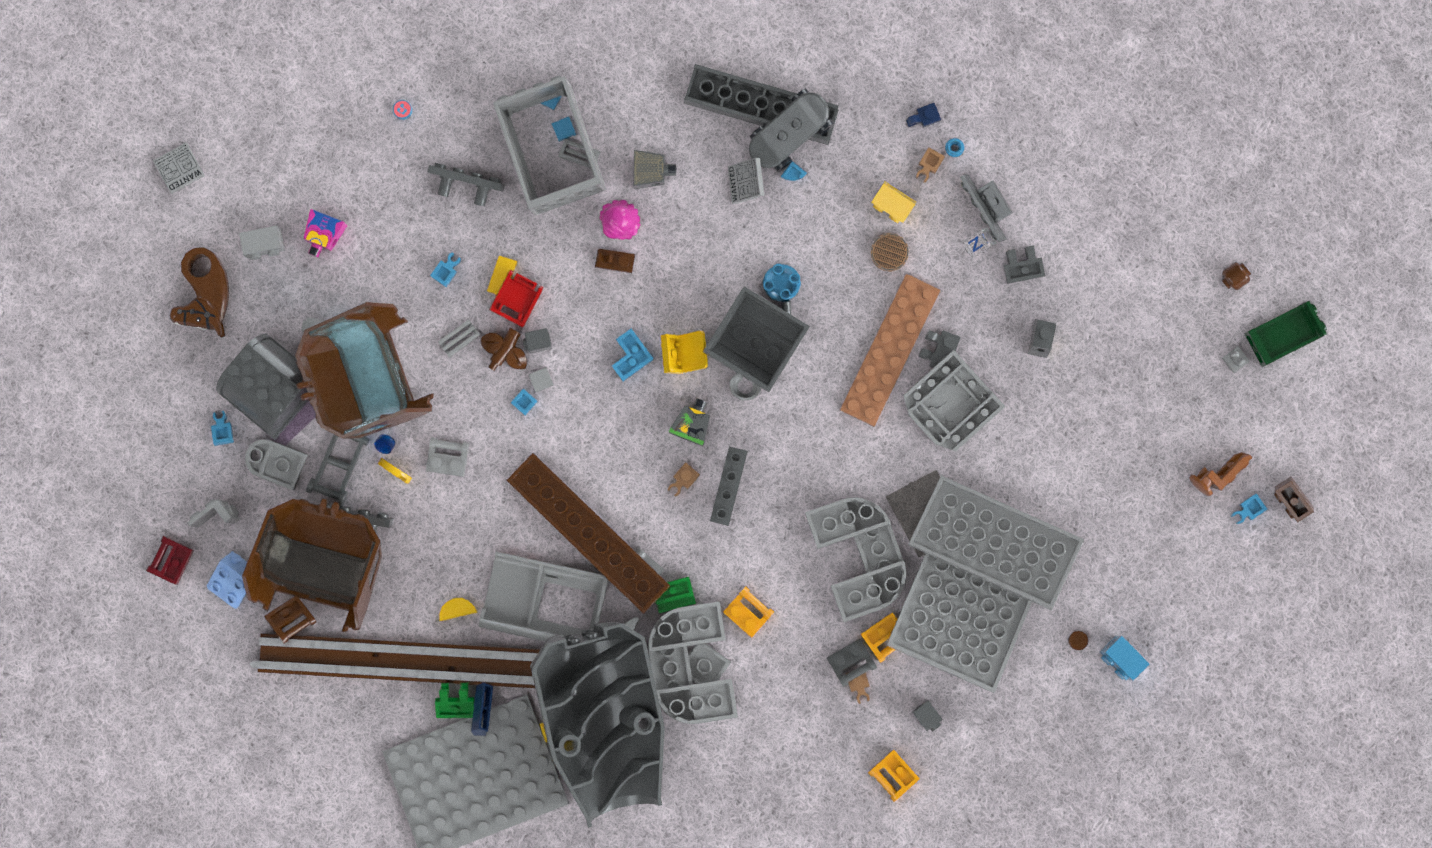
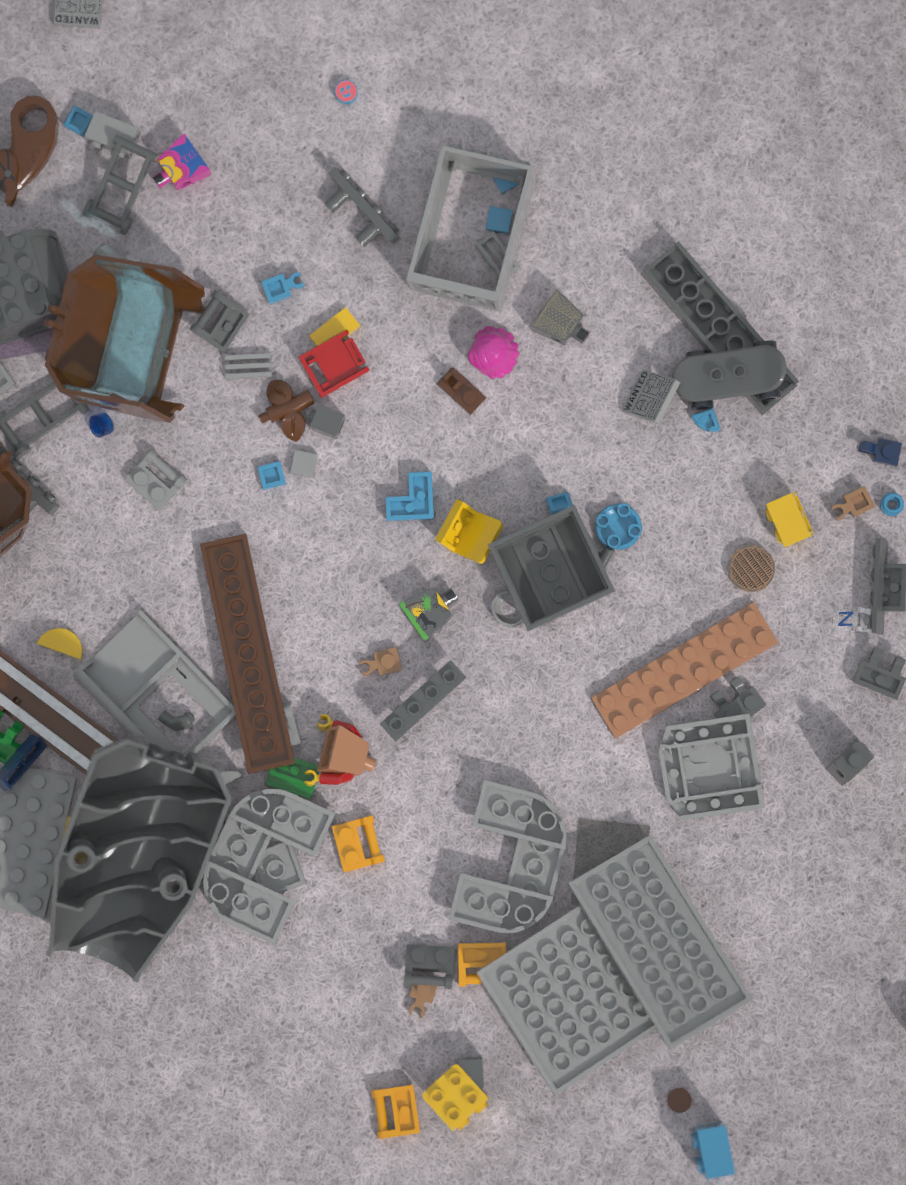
camera: 30 degrees right, 0 degrees up
(232, 248) = (78, 121): none -> dark azure tile
(279, 299) = (92, 205): none -> dark grey piece
(394, 470) = (93, 458): yellow tile -> none
(425, 321) = (226, 324): none -> dark grey plate
(572, 611) = (177, 723): none -> dark grey arm
(697, 557) = (342, 754): none -> nougat torso
(731, 293) = (558, 502): none -> dark azure tile
(928, 738) = (455, 1097): none -> yellow bracket

